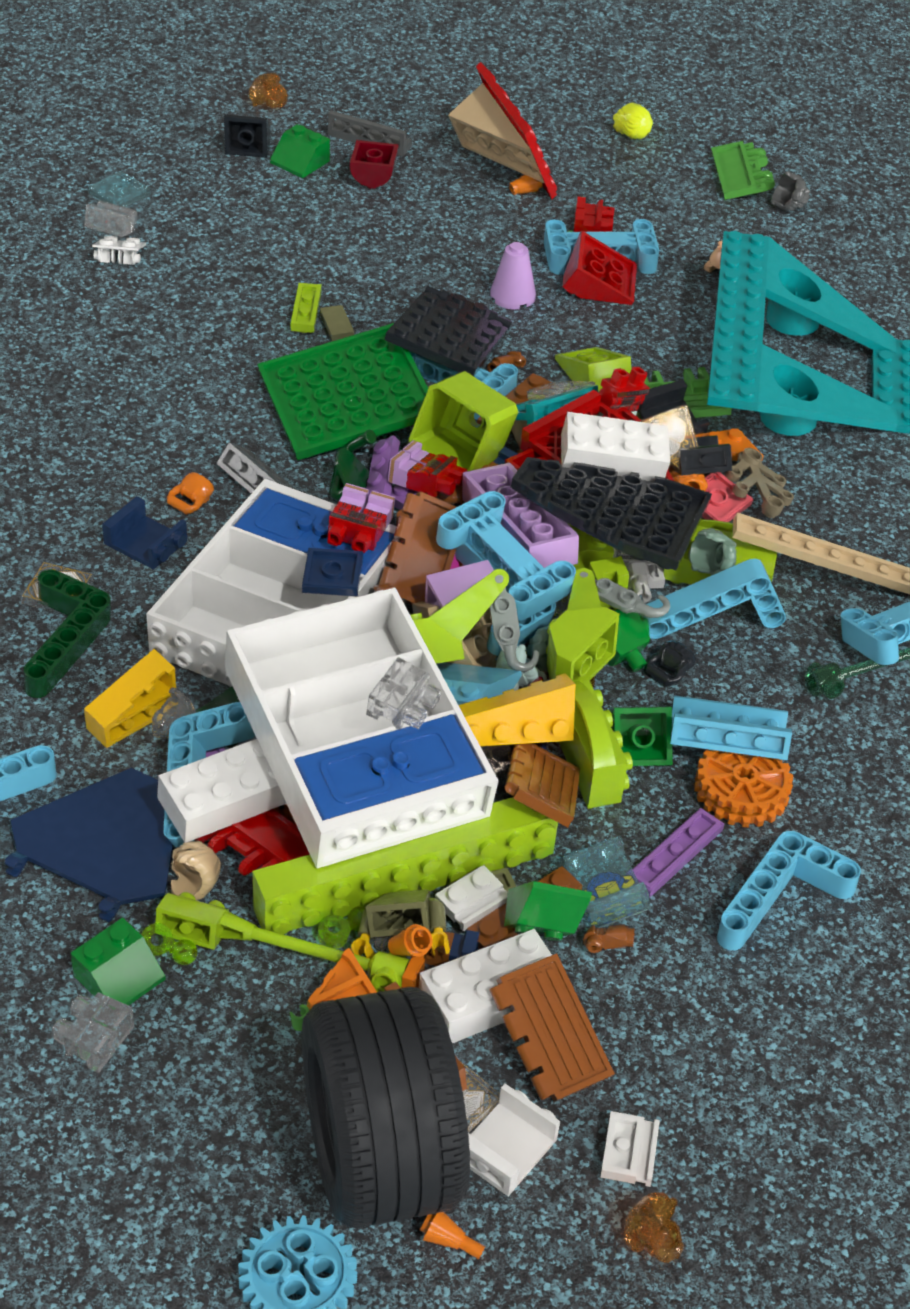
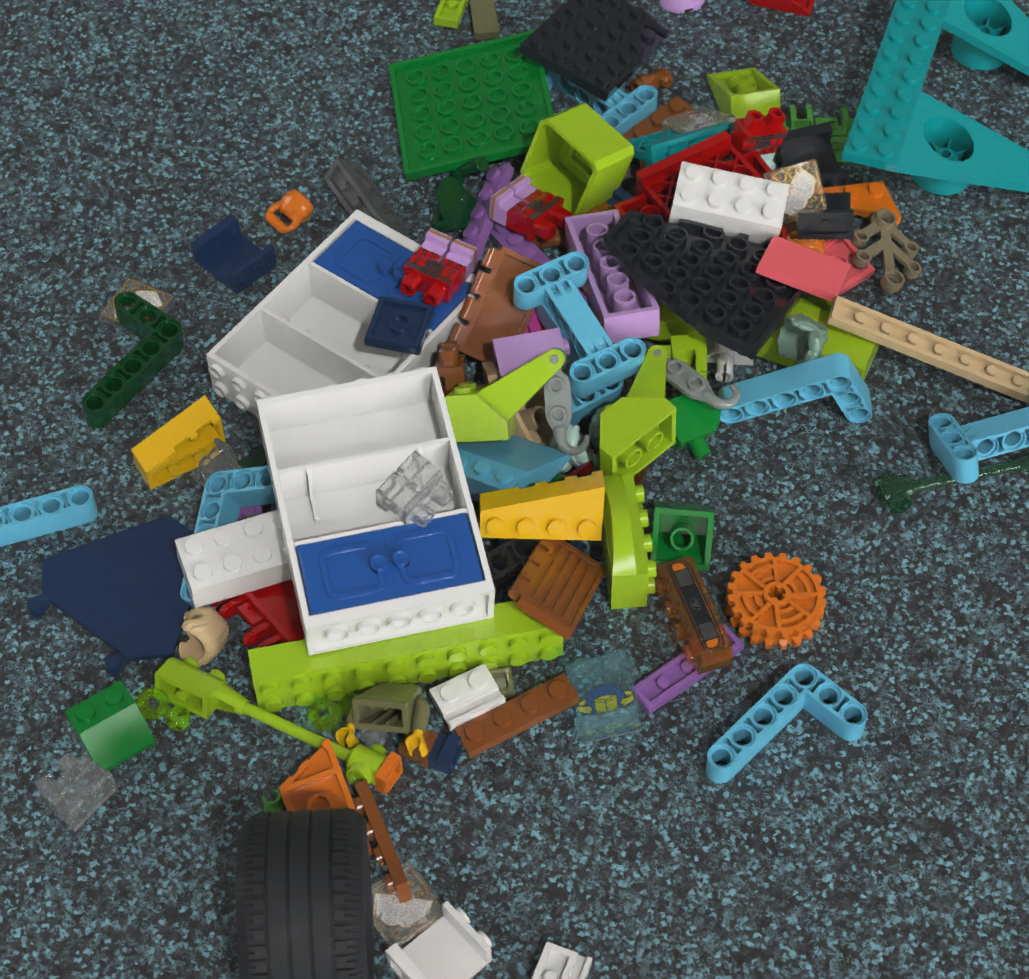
camera: 15 degrees right, 10 degrees up
(411, 942) = (388, 741): orange cone -> none
(464, 983) = (462, 794): white brick -> none
(546, 909) = (529, 723): green slope -> none
(554, 1029) = (509, 849): dark orange hinge -> none
(608, 938) = (593, 755): dark orange arm -> none
(674, 657) = (741, 450): black piece -> none
(674, 801) = (694, 615): none -> clear orange brick
(698, 495) = (803, 268): none -> coral tile
(730, 727) = (774, 539): medium azure fence -> none

